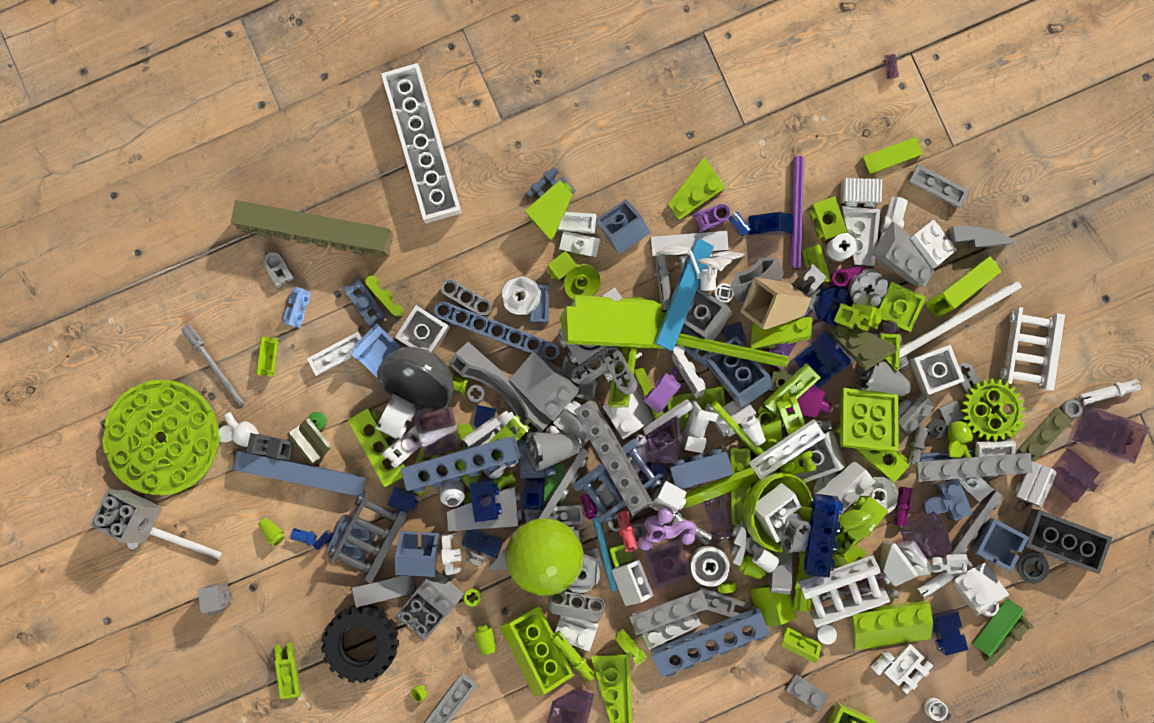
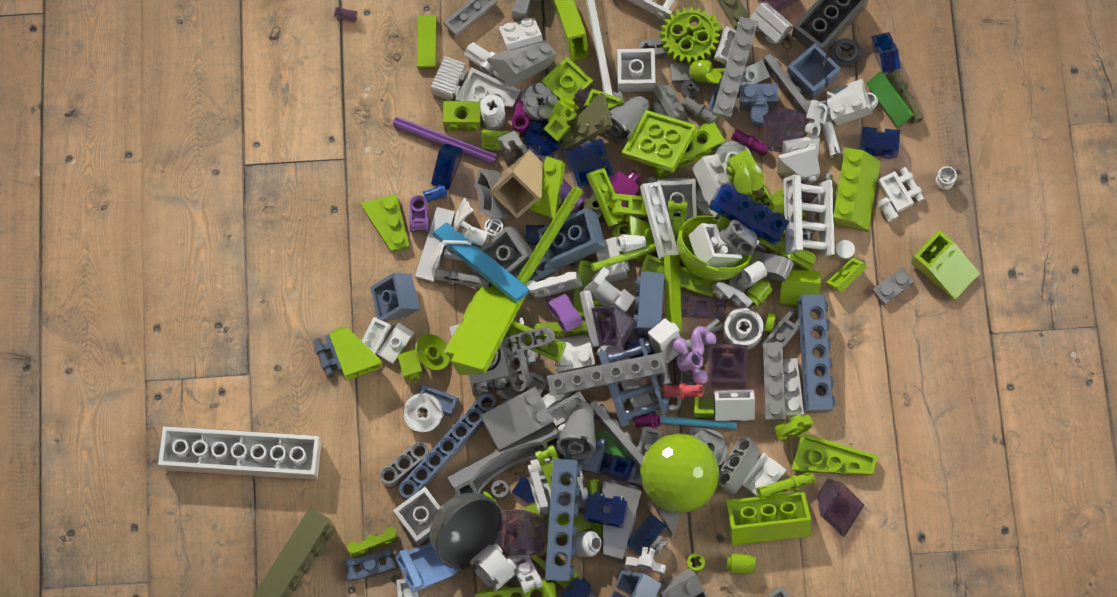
camera: 65 degrees left, 15 degrees down
(1046, 609) = (886, 52): none -> clear blue brick

